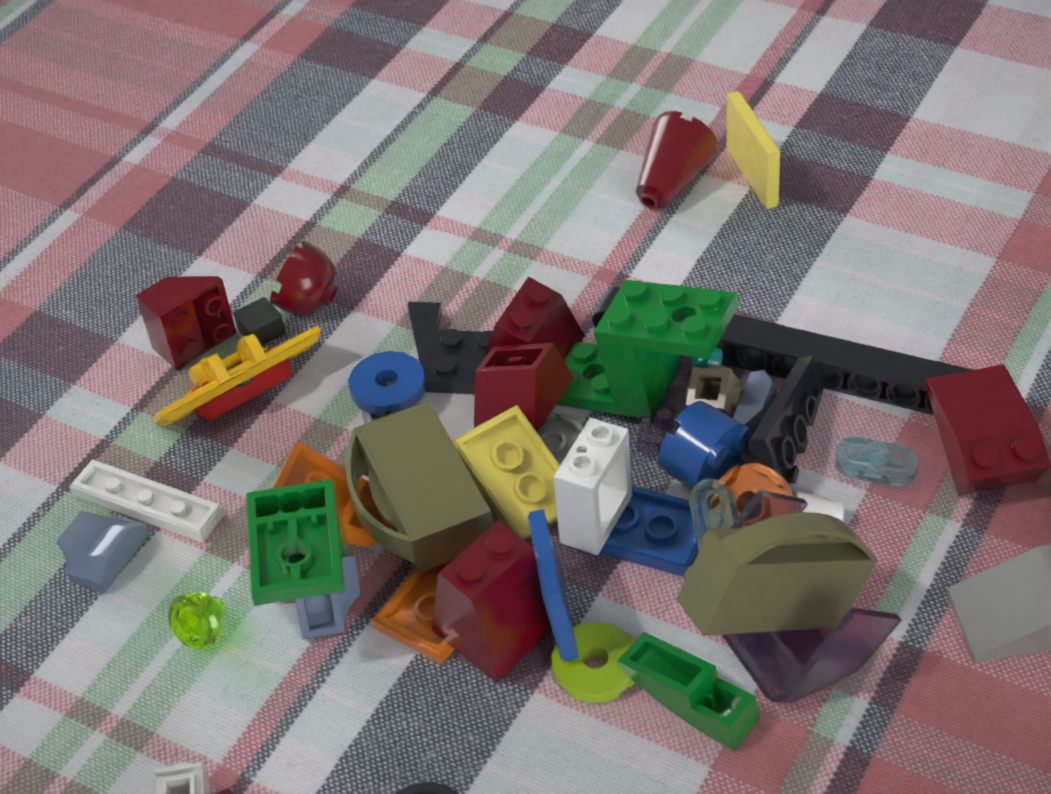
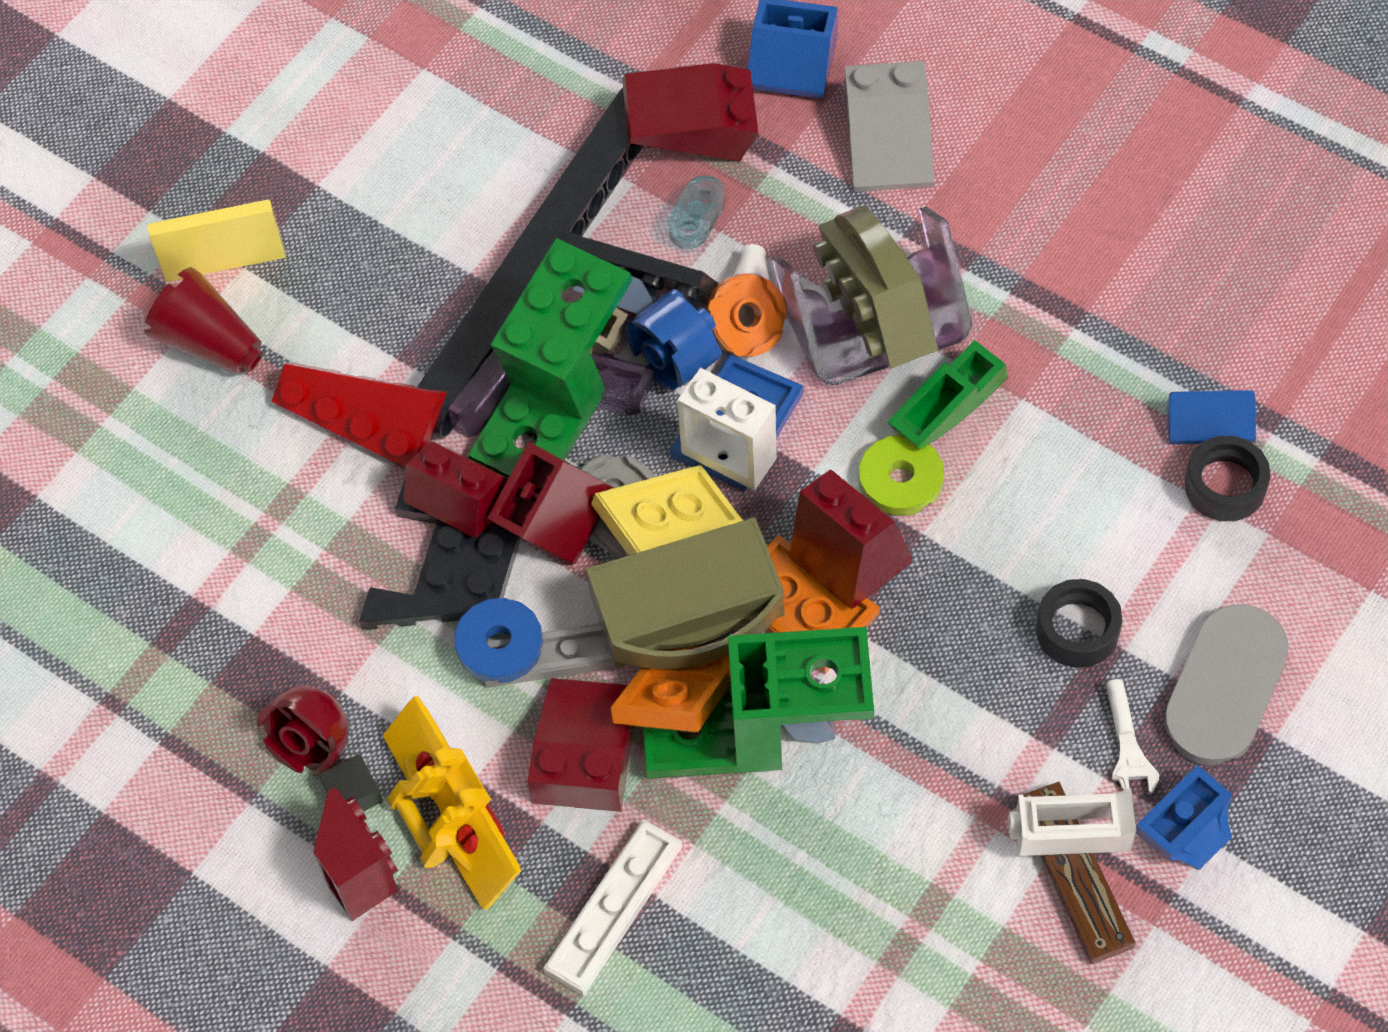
camera: 85 degrees left, 15 degrees up
(100, 548) = (684, 944): sand blue slope -> none
(197, 619) = (808, 830): clear neon green brick -> none
(268, 434) = (578, 749): none -> dark red slope
(553, 585) = (871, 473): blue tile -> none
(605, 267) = (373, 413): none -> red wing
(703, 514) = (760, 345): clear light blue plate -> none

